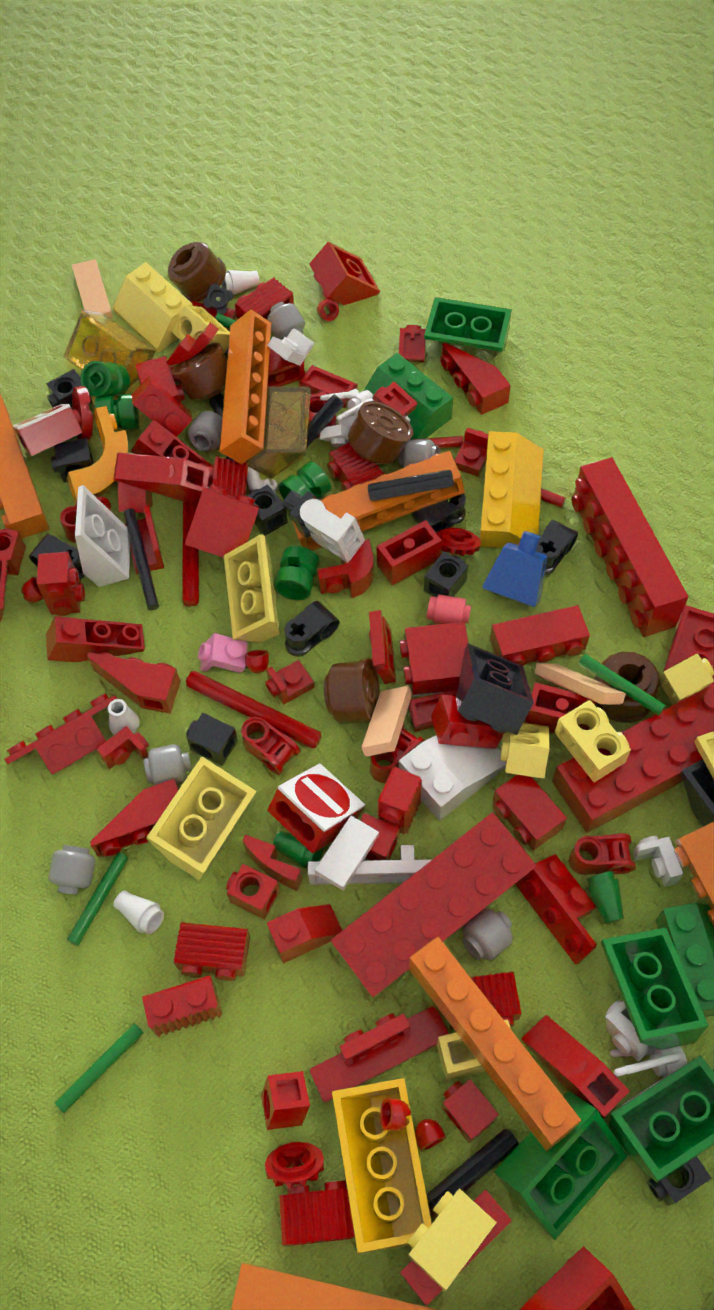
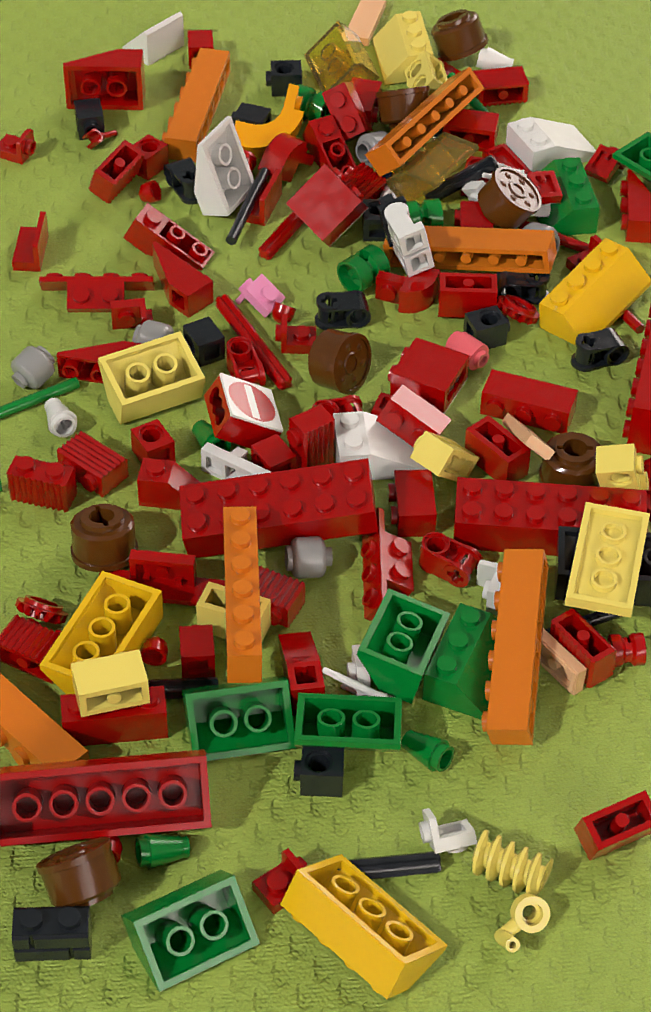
camera: 30 degrees right, 15 degrees down
(48, 428) = (246, 87): piece -> none
(59, 583) = (171, 188): red brick -> none
(80, 402) = (281, 91): red tile -> none
(105, 379) = (317, 73): green wheel -> none
(121, 716) = (147, 289): white cone -> none
(163, 475) = (303, 147): red slope -> none
(190, 347) = (408, 79): red slope -> none
(216, 291) = (458, 58): black plate -> none
(251, 592) = (314, 258): light yellow slope -> none
(266, 859) = (181, 433): red slope -> none
(284, 319) = (507, 101): light grey head -> none
(285, 1100) = (66, 568): red brick -> none
(292, 348) = (488, 116): white bracket -> none
(292, 1037) = (102, 538): none -> reddish brown wheel
(332, 308) = (558, 108): red hinge -> none
(342, 275) = (588, 92): red slope -> none
(347, 853) = (240, 447): white tile -> none
(351, 348) = (542, 141): none -> white slope
(382, 647) = (388, 344): red plate -> none
(387, 721) = (347, 388): light nougat tile -> none
(393, 1114) = (132, 598): red hinge -> none
(410, 485) = (500, 239): black axle -> none
(493, 690) = (444, 398): black slope -> none
(519, 571) = (548, 346): blue torso -> none
(585, 743) = (496, 464): light yellow brick -> none
(606, 895) = (429, 582): green cone -> none
(622, 684) = (559, 447): green bar -> none

